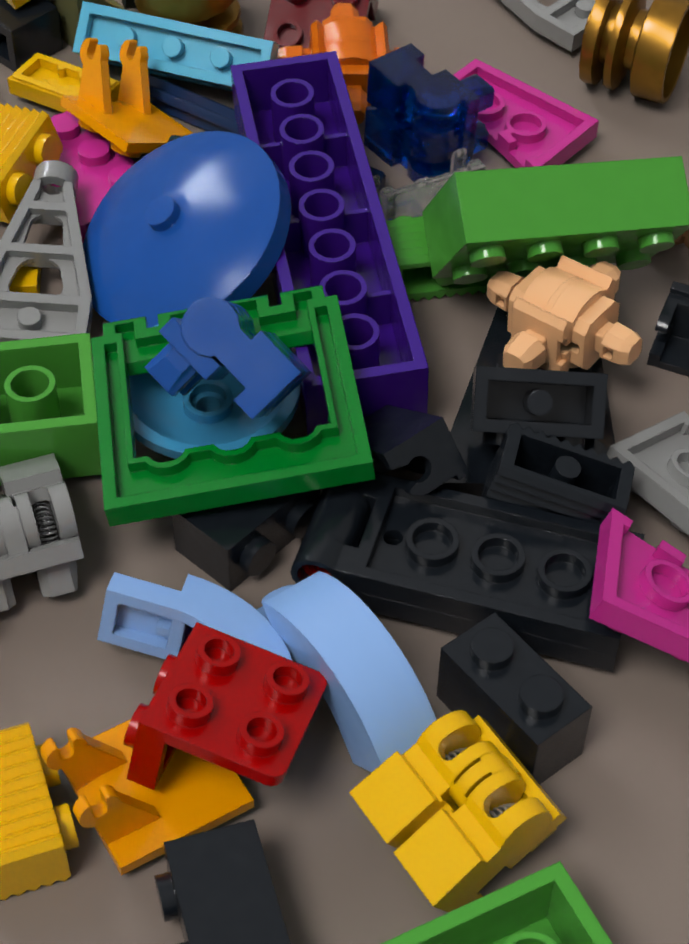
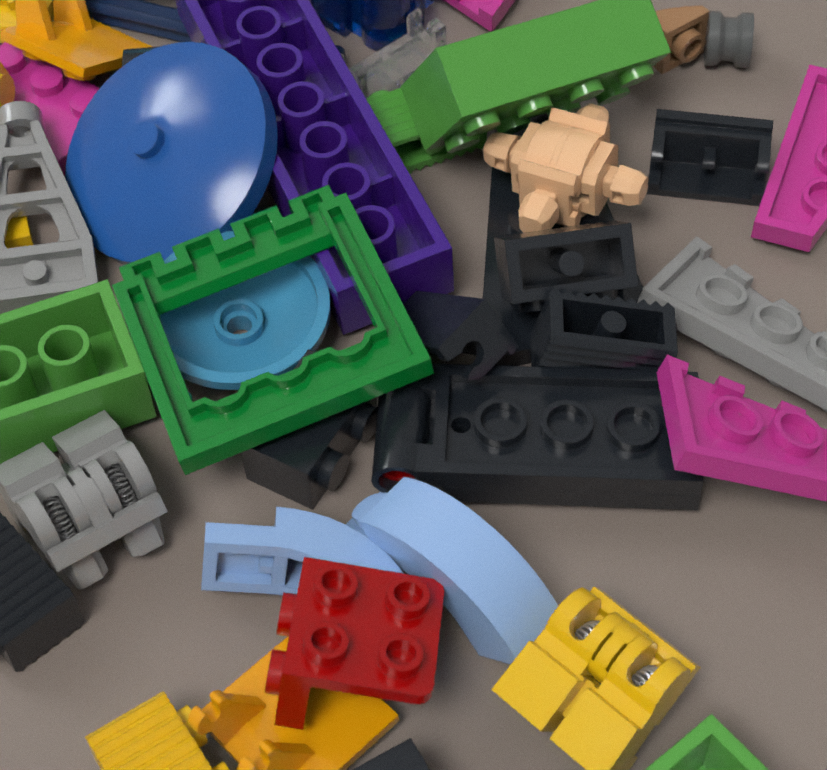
camera: 10 degrees left, 5 degrees up
(221, 340) = (252, 265): blue hips -> none
(518, 694) = (608, 547): black brick -> none

